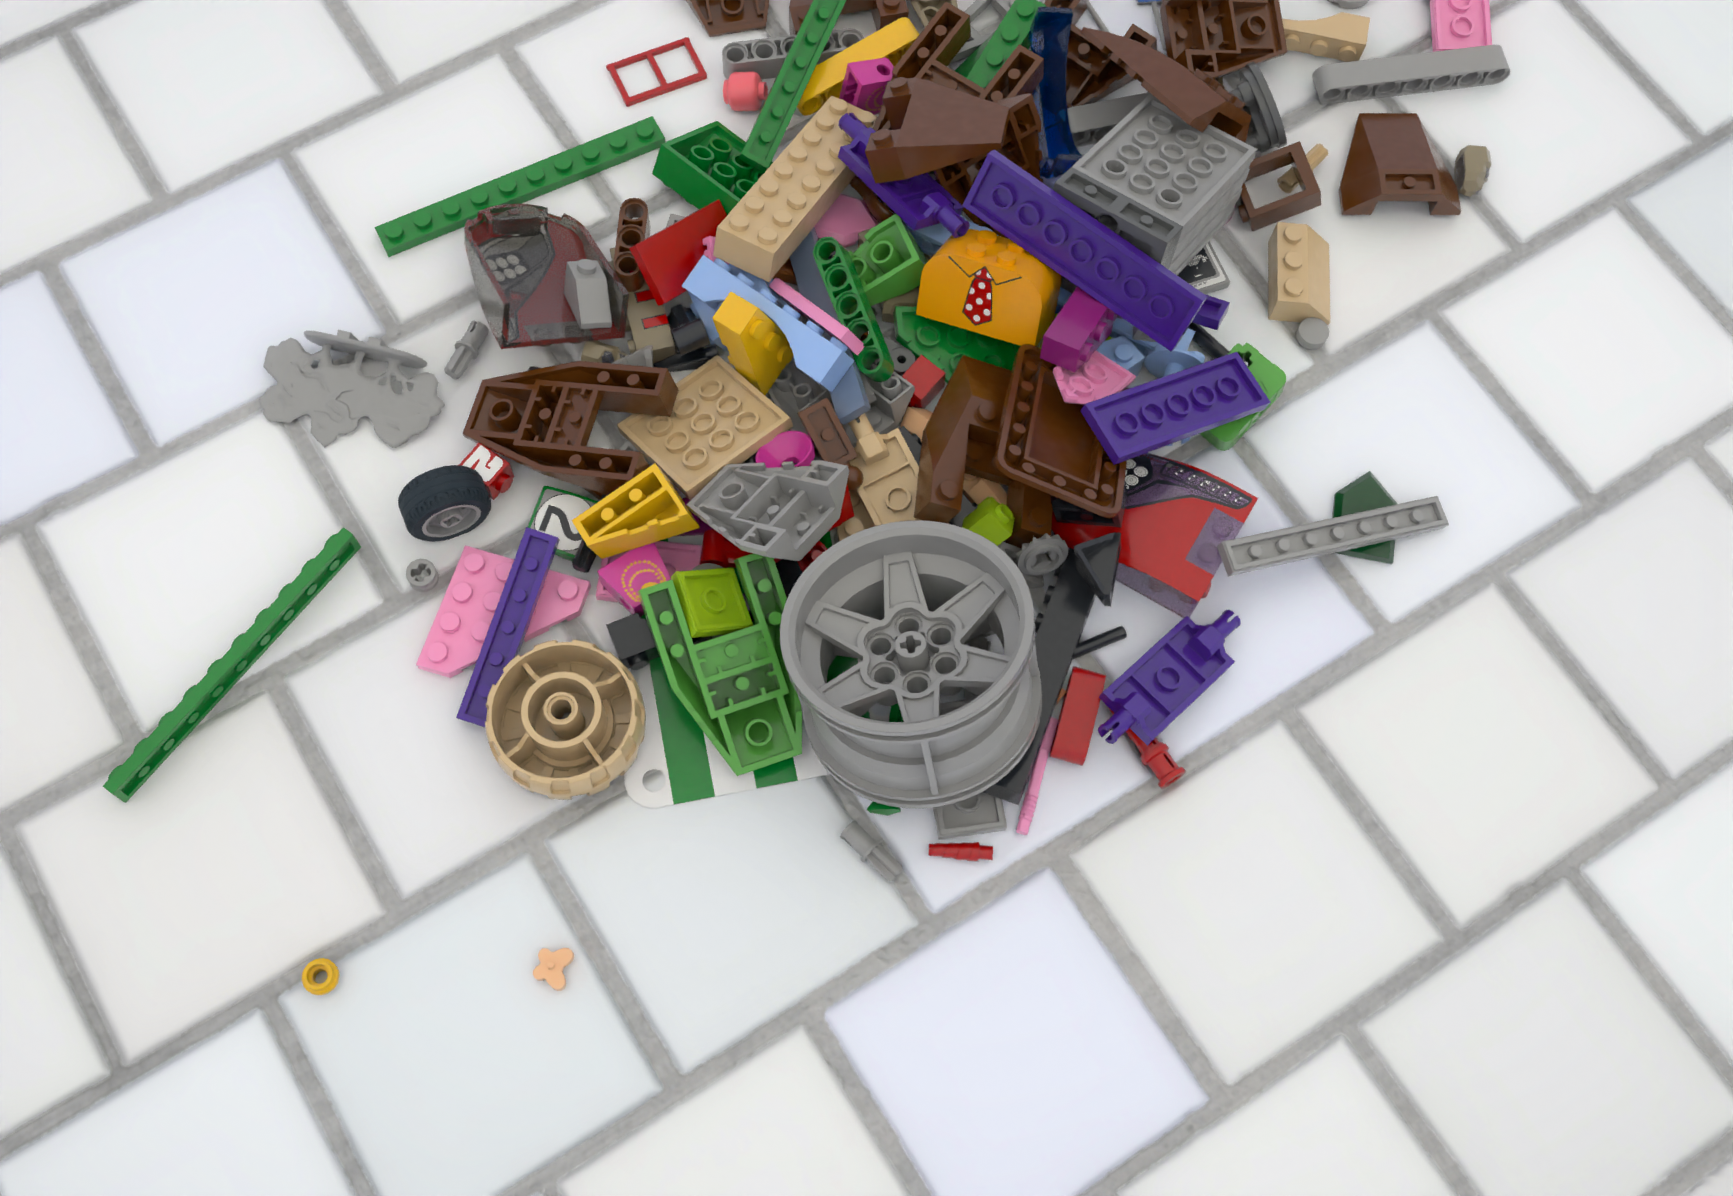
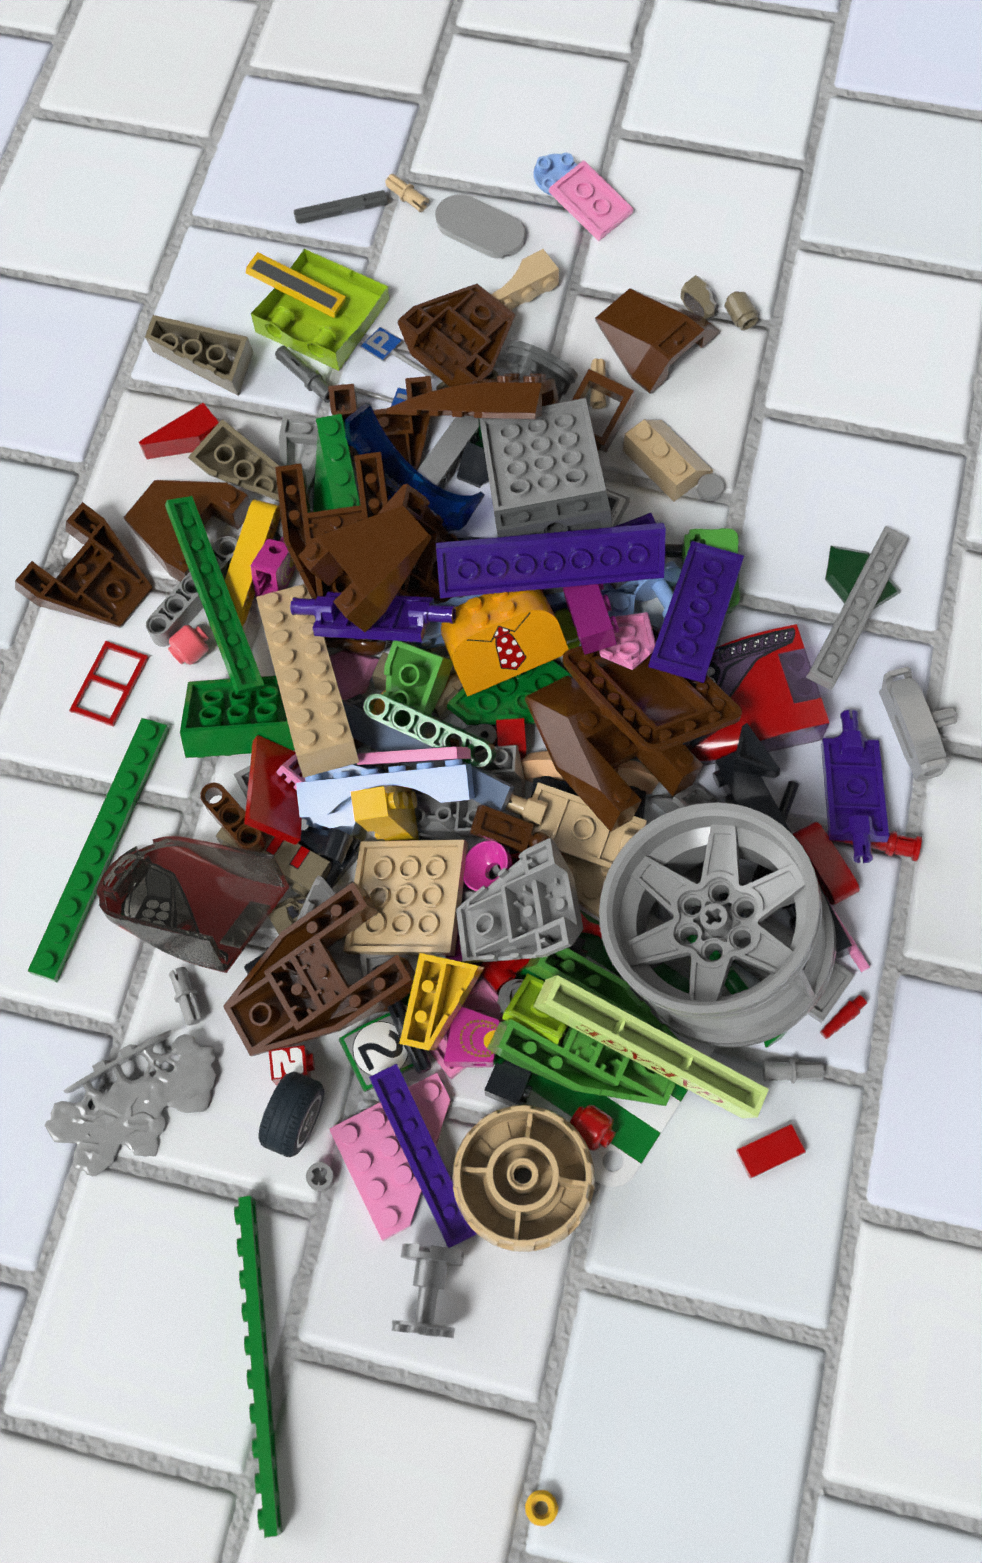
camera: 35 degrees left, 0 degrees up
(416, 721) = (429, 1277): none -> flat silver piece
(552, 967) = (679, 1345): light nougat piece -> none
(588, 294) = (237, 881): light grey slope -> none
(662, 736) = (593, 1126): none -> red head
(764, 712) = (651, 1047): none -> yellowish green brick
(785, 895) = (770, 1151): none -> red tile
(991, 521) = (658, 792): lime brick -> none
(1033, 561) = (707, 781): light grey gear -> none
(1282, 678) = (915, 724): none -> light grey piece
(1410, 74) = (600, 265): light grey beam -> none
(1499, 212) = (741, 310): none -> dark tan brick

